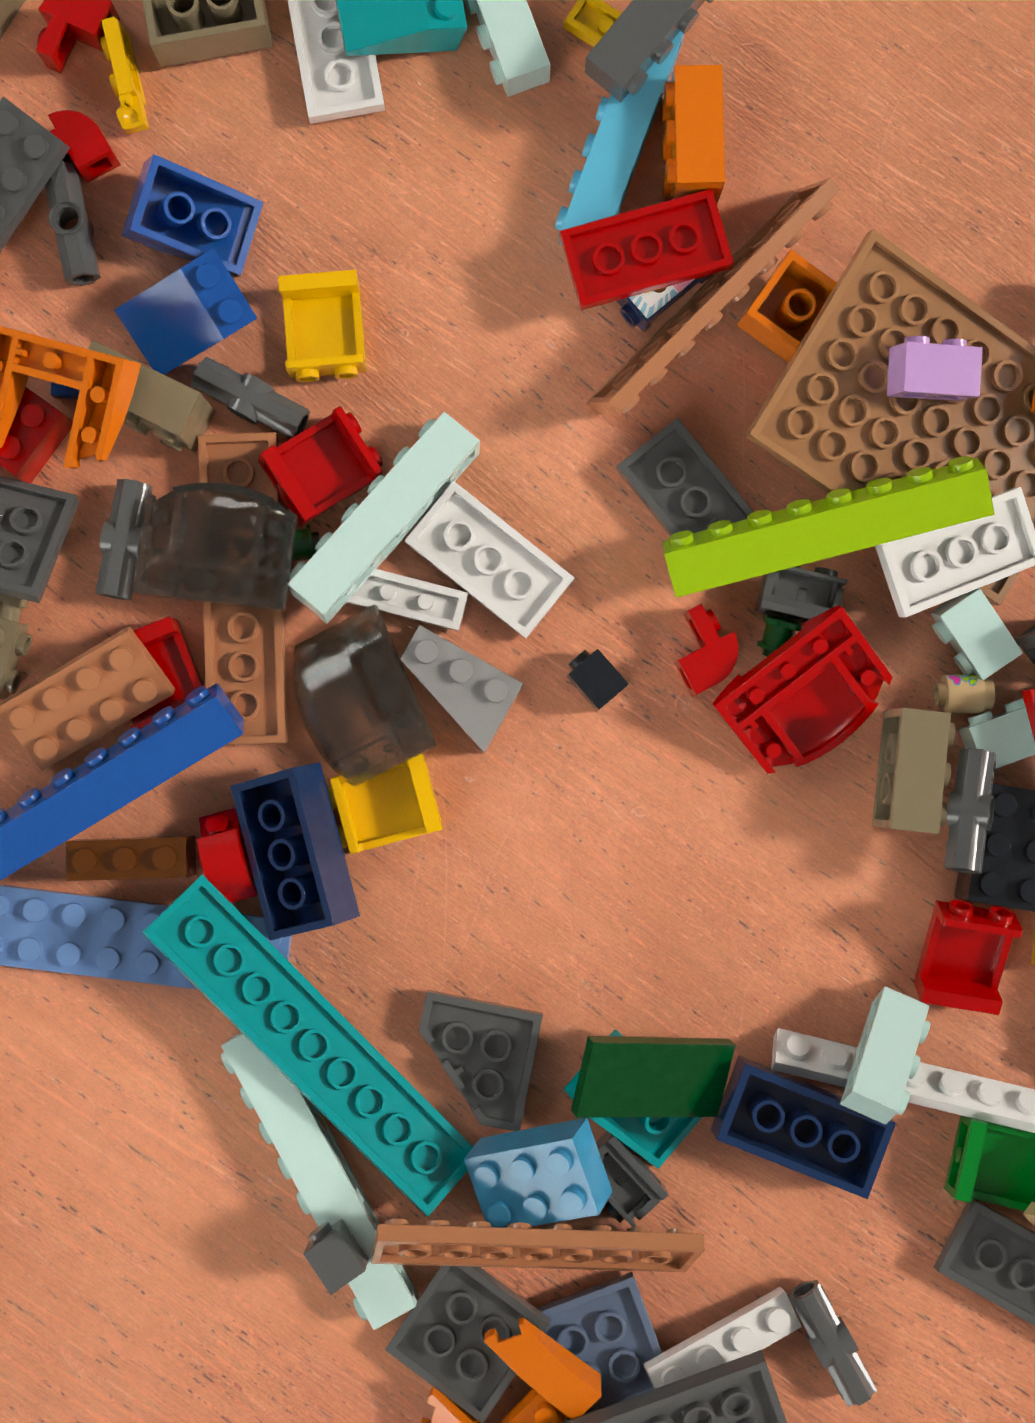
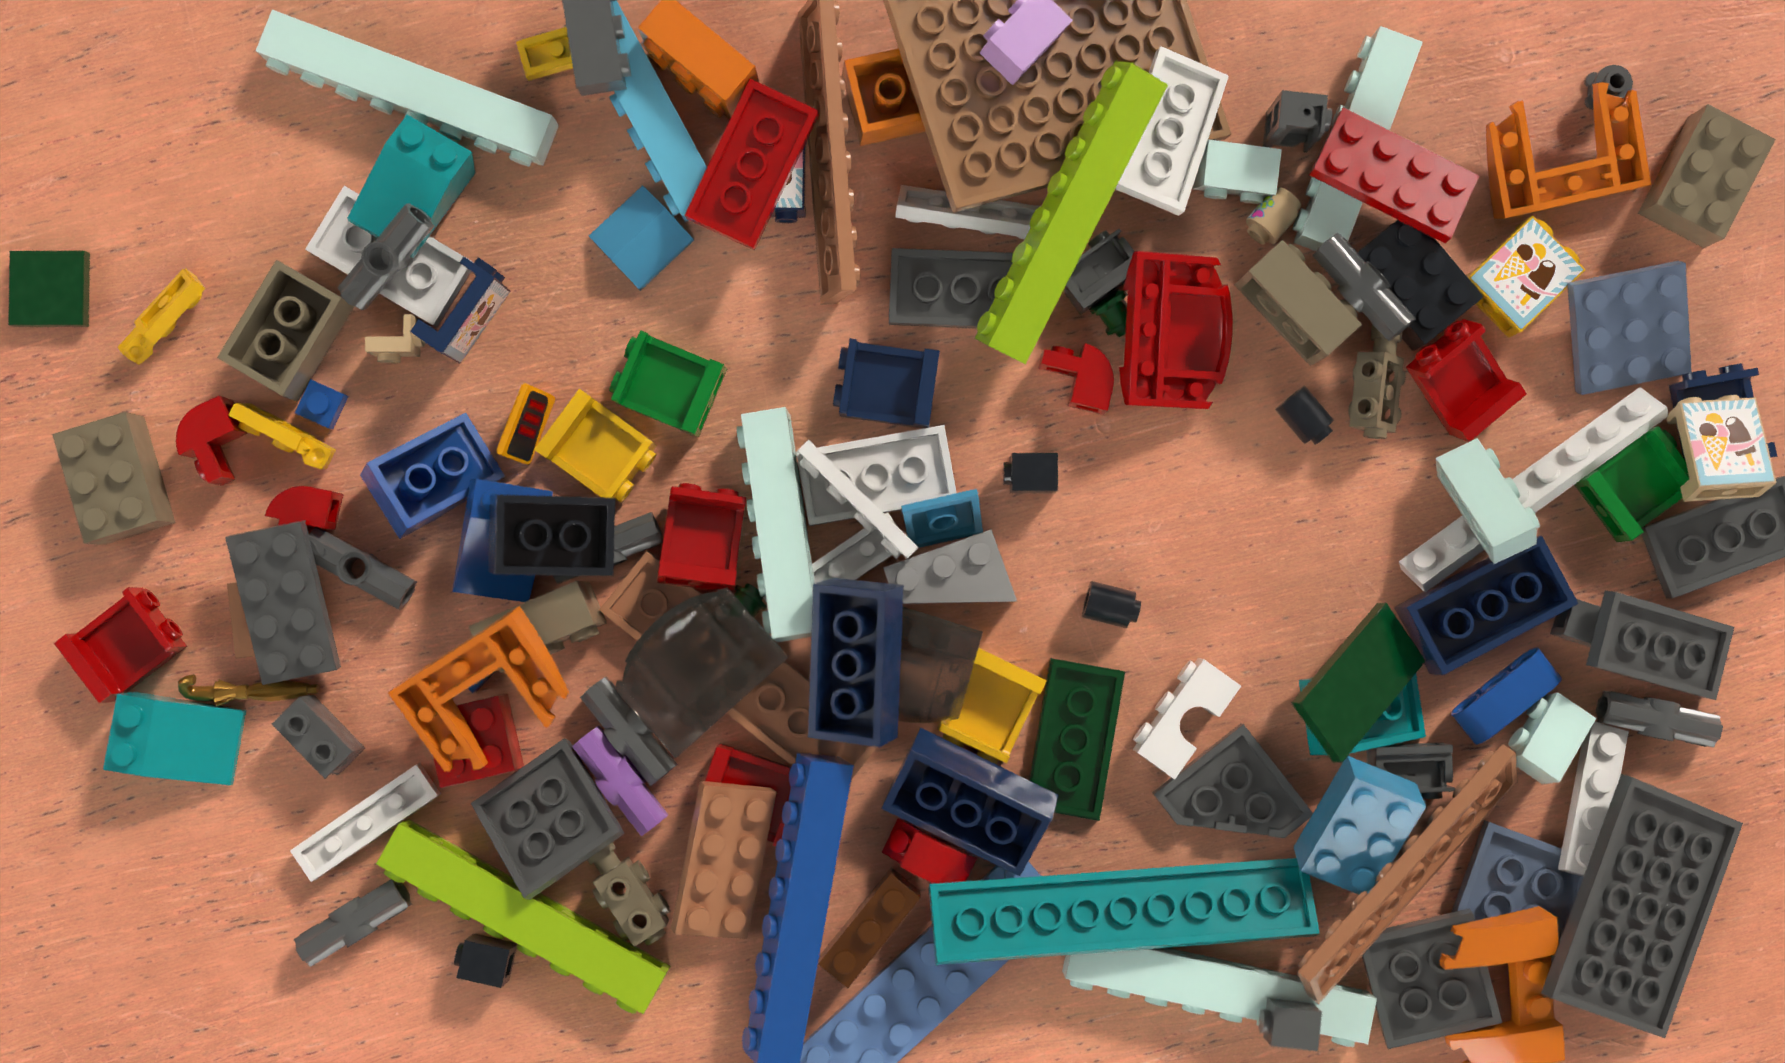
camera: 45 degrees left, 0 degrees up
(79, 567) = (620, 781): none -> medium lavender piece
(174, 87) = (321, 404): none -> blue plate
(218, 342) = (551, 535): none -> black brick
(264, 103) = (391, 348): none -> tan bracket
(293, 254) = (525, 424): none -> slope
(324, 664) = (855, 661): none -> dark blue brick
(338, 135) = (469, 315): none -> panel
(347, 30) = (399, 241): none -> dark grey piece
(420, 336) = (667, 383): none -> green panel
(421, 892) = (1077, 735): none -> dark green tile
(454, 542) = (844, 490): none -> white plate
(498, 639) = (943, 518): none -> dark azure slope
(516, 220) = (641, 237): none -> dark azure slope
(542, 956) = (1199, 687): none -> white arch
(546, 830) = (1110, 605): none -> black brick
(567, 506) = (886, 384): none -> dark blue panel
(742, 1268) = (1550, 737): none -> light aqua brick
(745, 1205) = (1506, 696): none -> blue beam
(767, 472) = (934, 207): none -> white plate
(828, 856) = (1306, 416): none -> black brick
(857, 1221) = (1577, 623): none -> dark grey brick
(891, 1293) = (1660, 645): none -> dark grey plate
(895, 893) = (1372, 389): none -> dark tan brick

